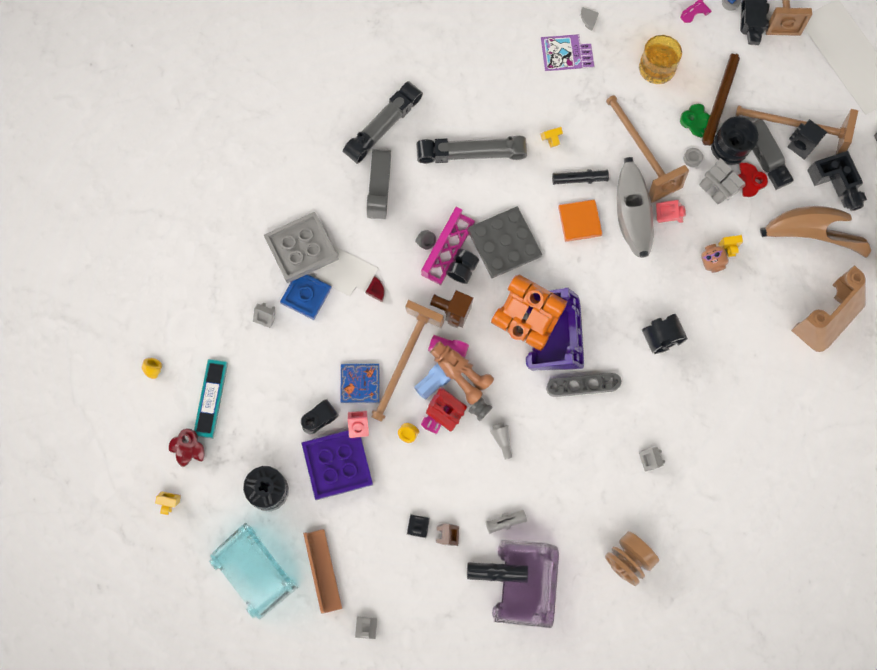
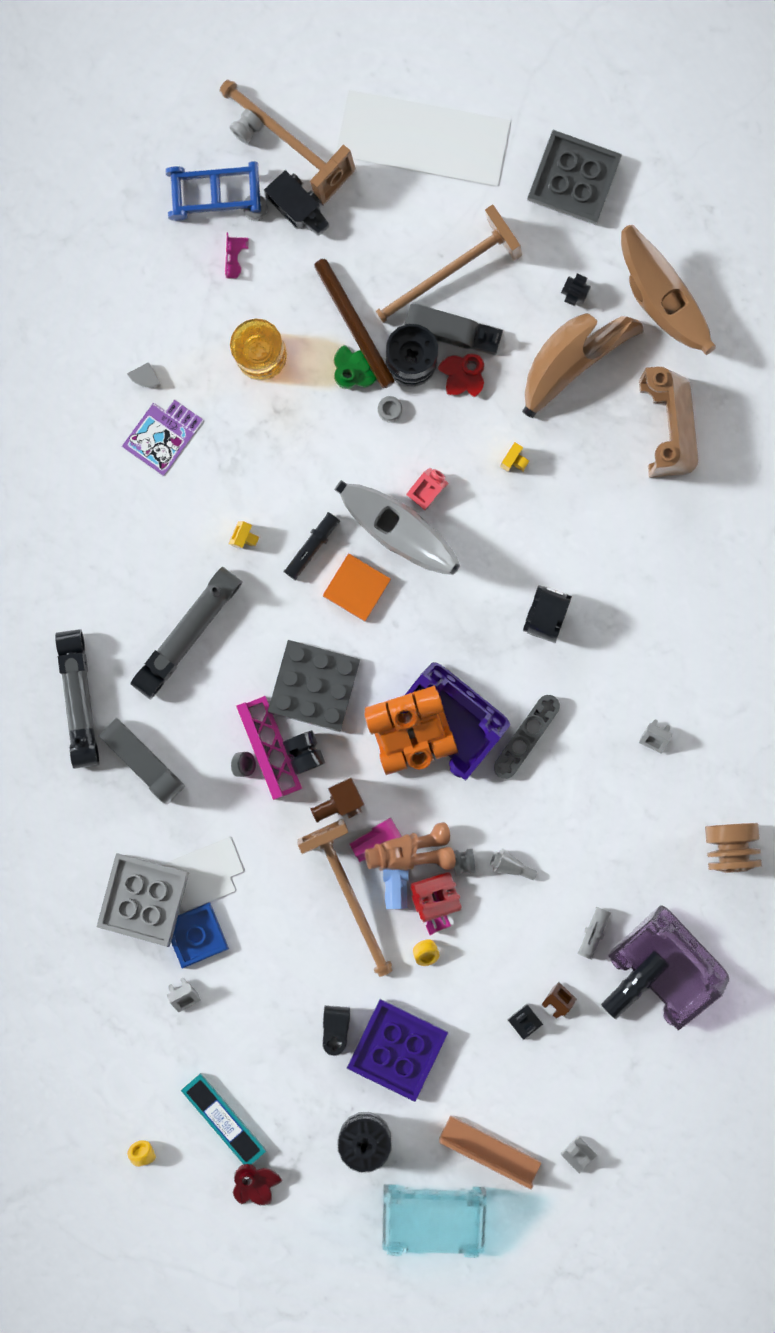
camera: 40 degrees left, 10 degrees up
(168, 501) = (293, 1247): yellow tile -> none
(358, 424) = (375, 996): coral bracket -> none
(359, 383) = (335, 958): blue tile -> none
(376, 289) = (251, 859): dark red tile -> none
(666, 183) = (395, 466): medium nougat tile -> none
(714, 258) = (514, 489): nougat head -> none
(717, 177) = (431, 407): light grey hips -> none
(806, 138) = (473, 279): black brick -> none
(837, 169) = (531, 276): black brick -> none

